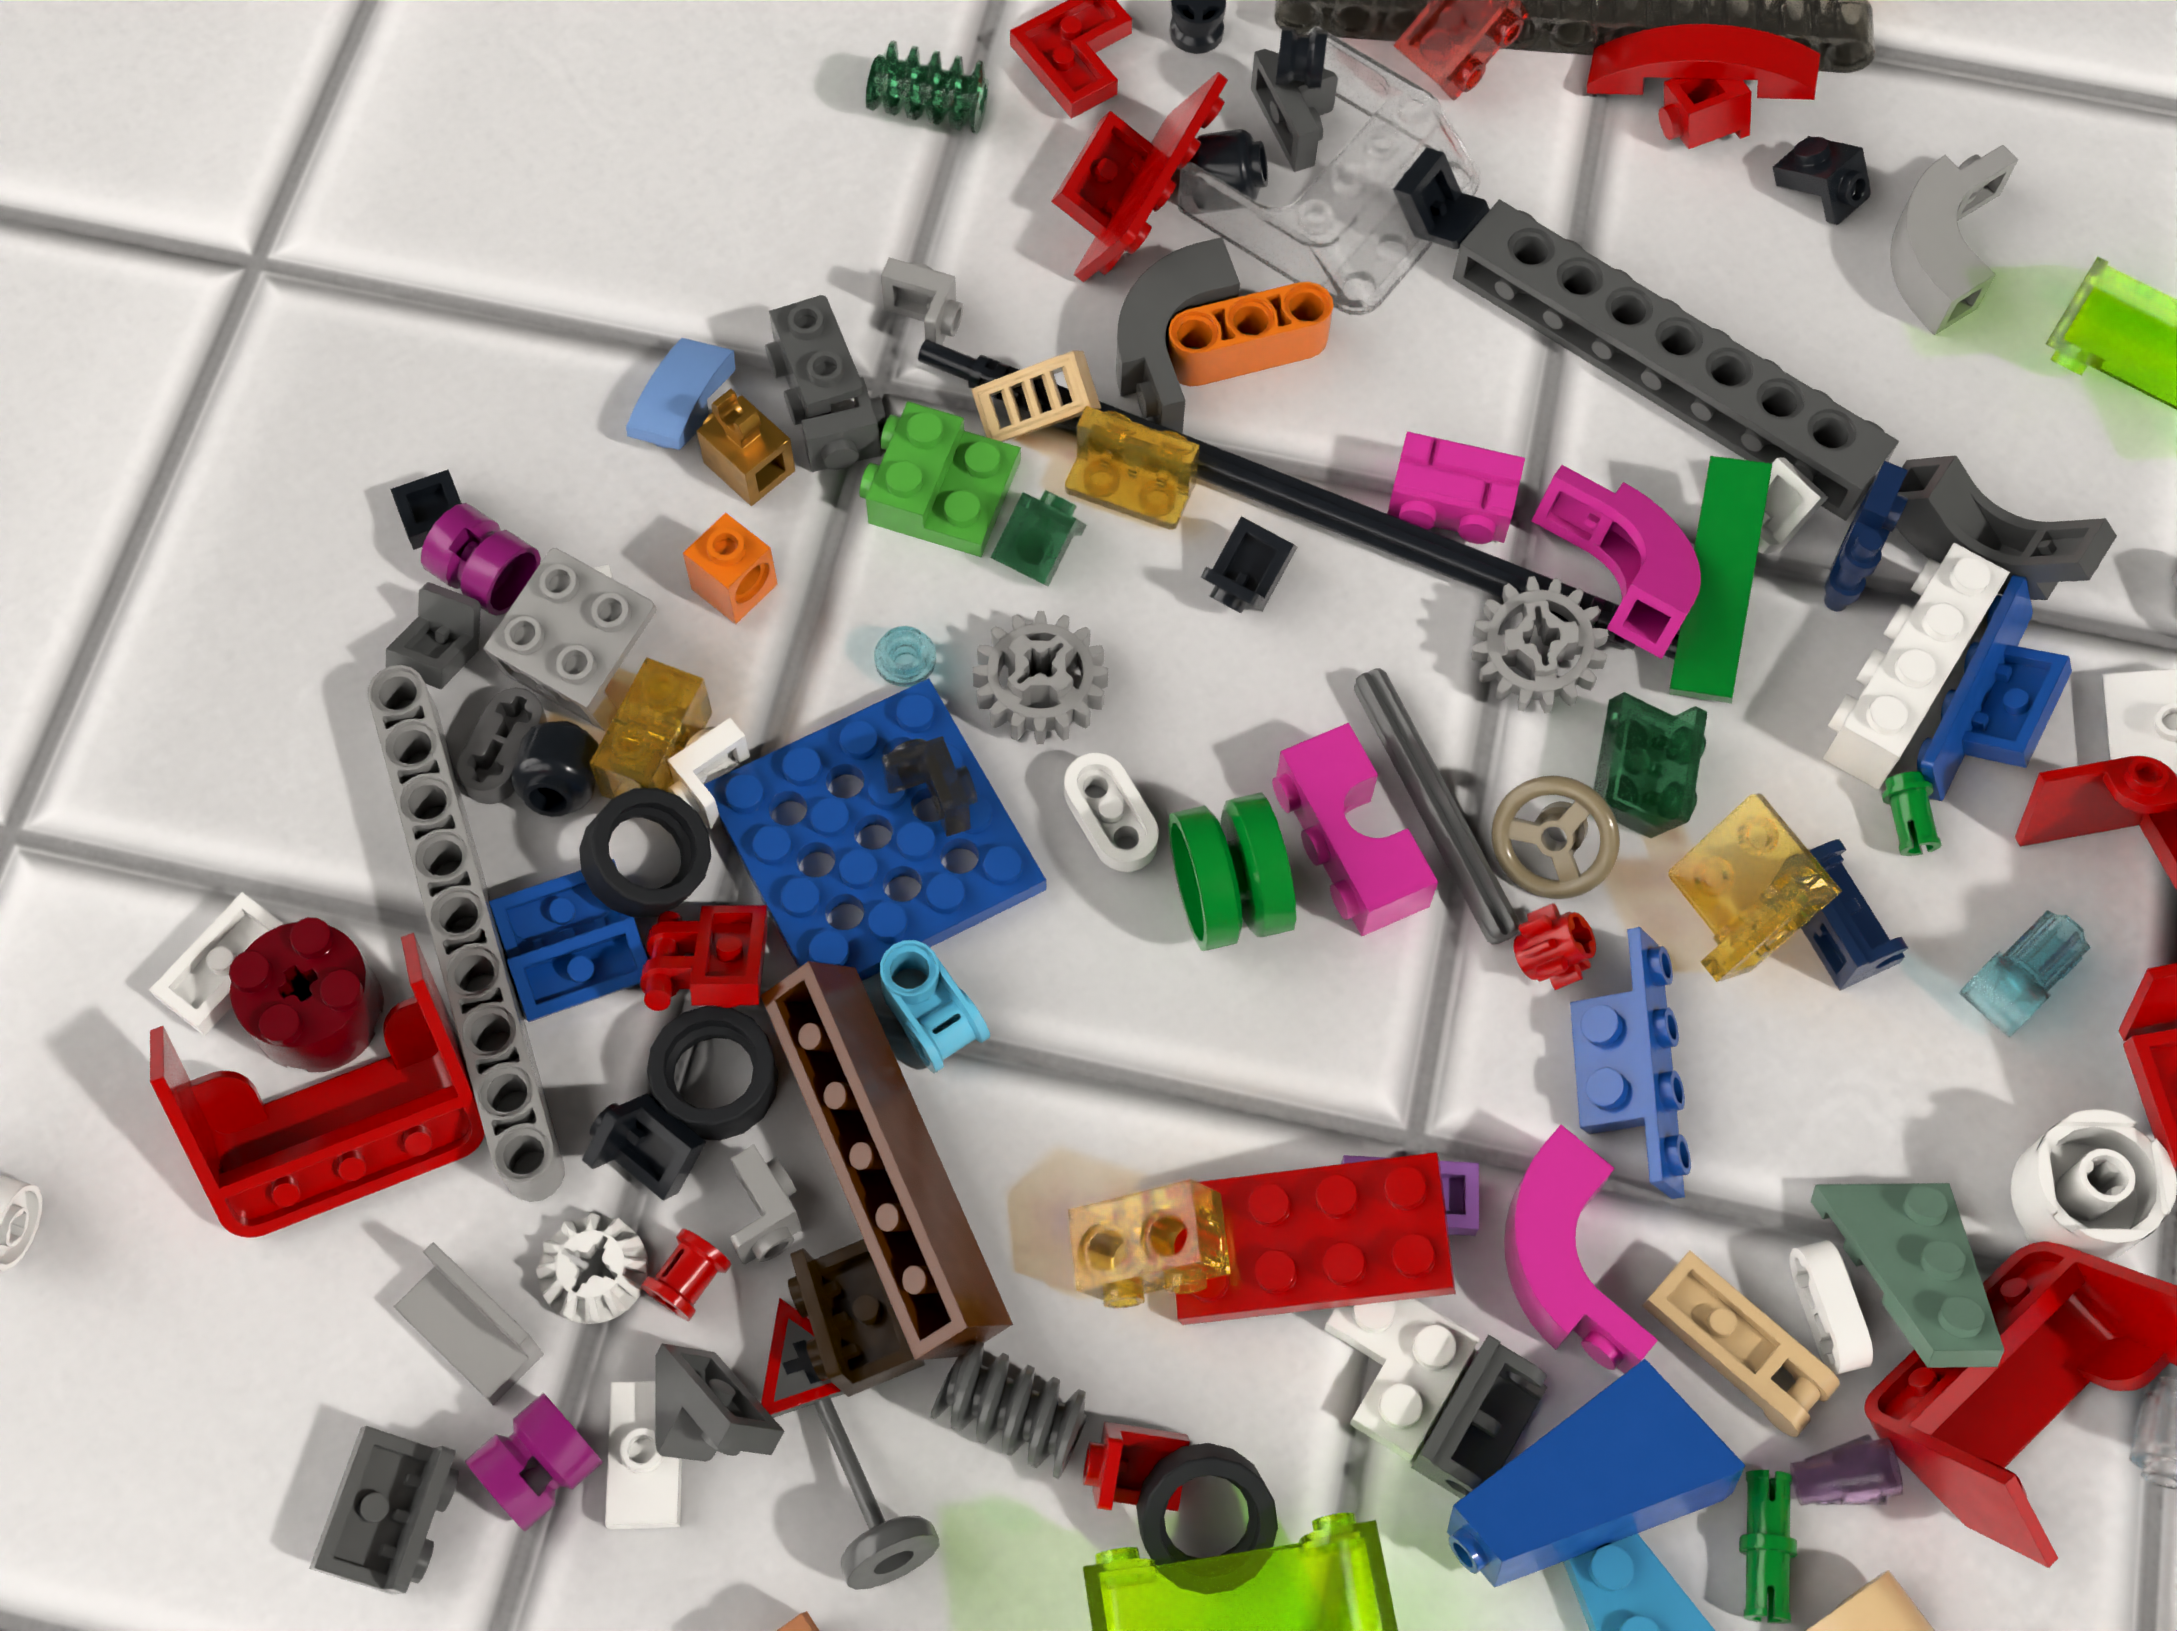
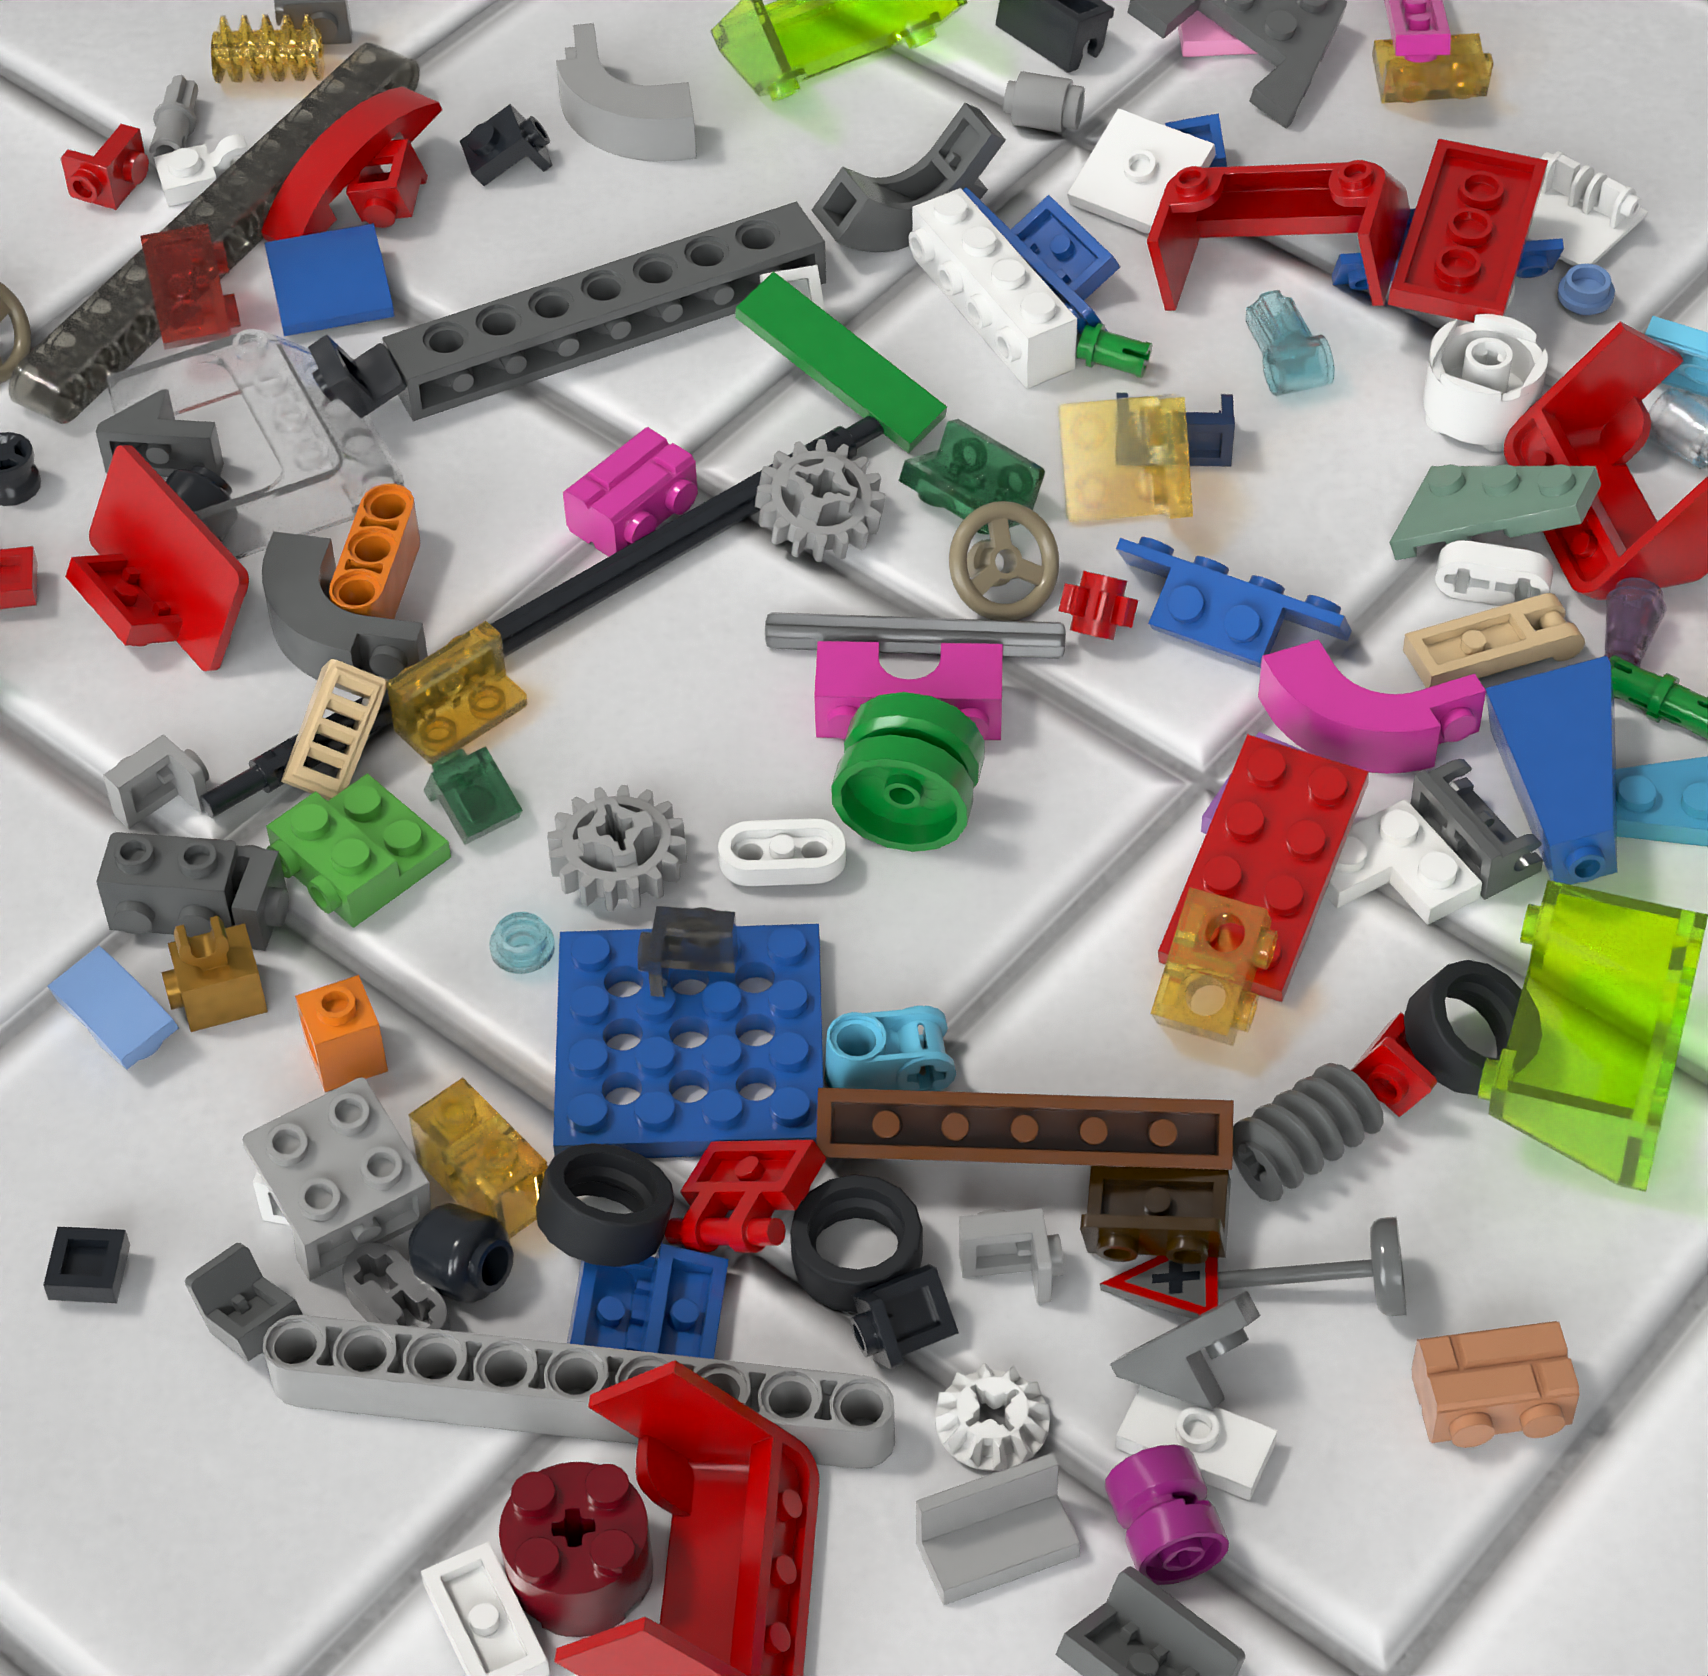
camera: 60 degrees left, 15 degrees down
(479, 558) = (198, 1210): magenta wheel -> none
(686, 1274) = (1044, 1336): red bush -> none
(705, 758) = (531, 1121): white bracket -> none
(1249, 566) = (609, 660): black bracket -> none
(1301, 57) = (143, 392): black wheel -> none
(1565, 127) = (329, 279): none -> blue slope
(1638, 546) = (779, 397): dark pink arch -> none
(1865, 538) = (867, 260): dark blue plate -> none

